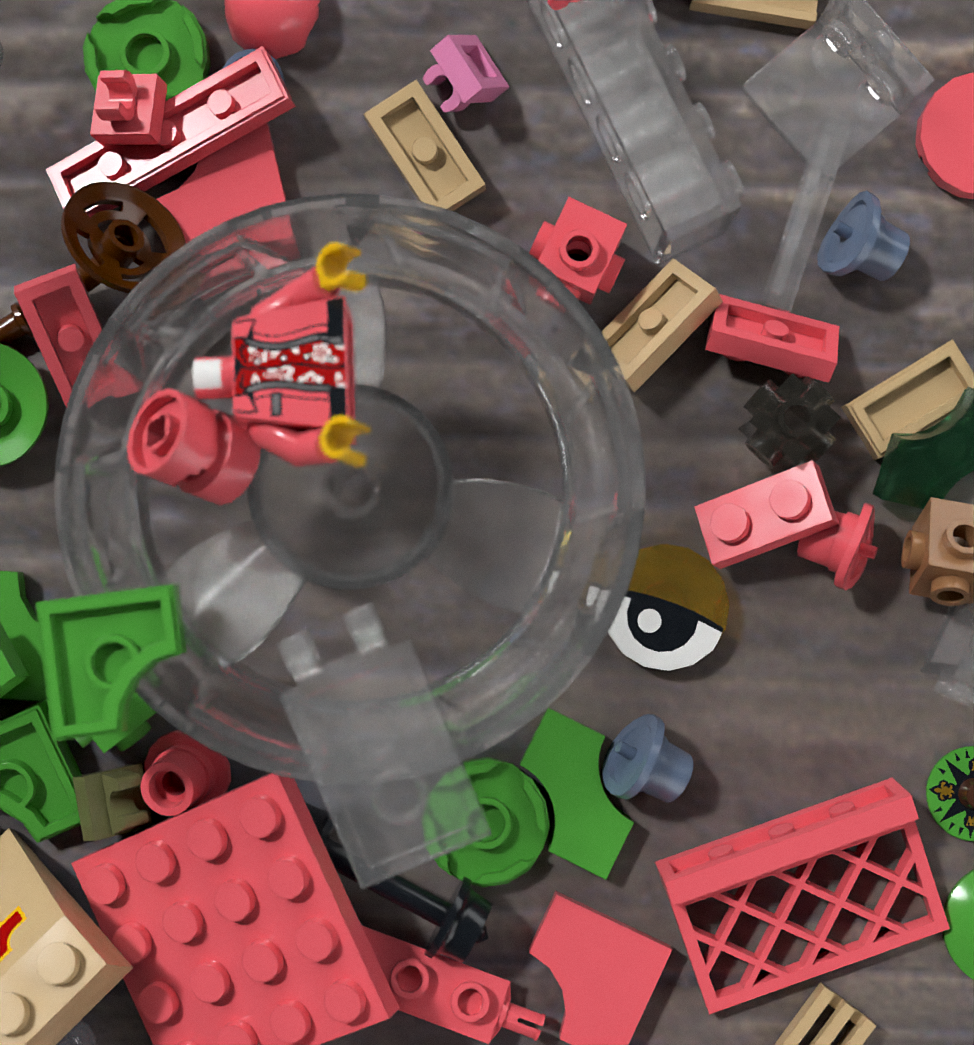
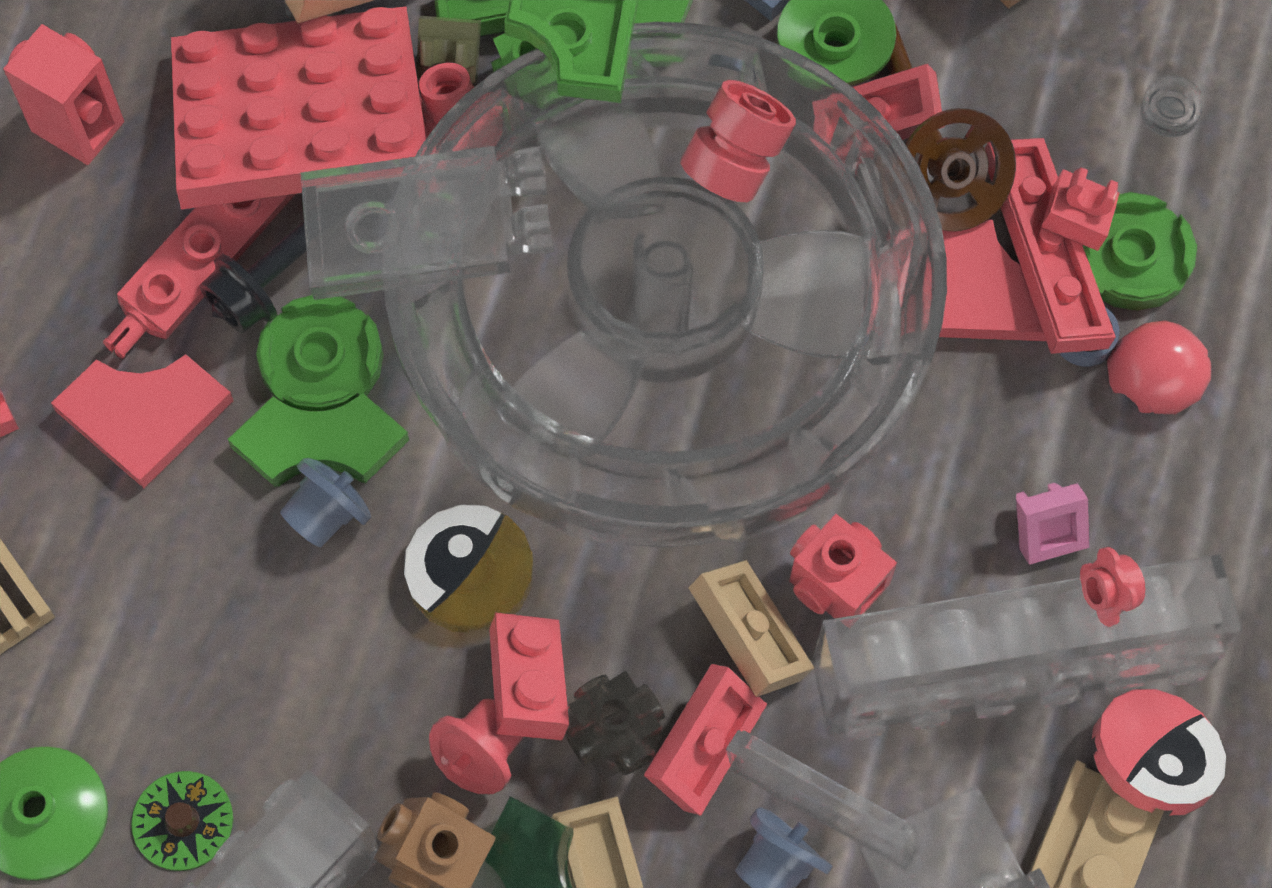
camera: 100 degrees right, 20 degrees down
(295, 367) = (782, 229): torso -> none
(424, 149) = (980, 464): tan plate -> none
(794, 842) = (200, 623): coral fence -> none

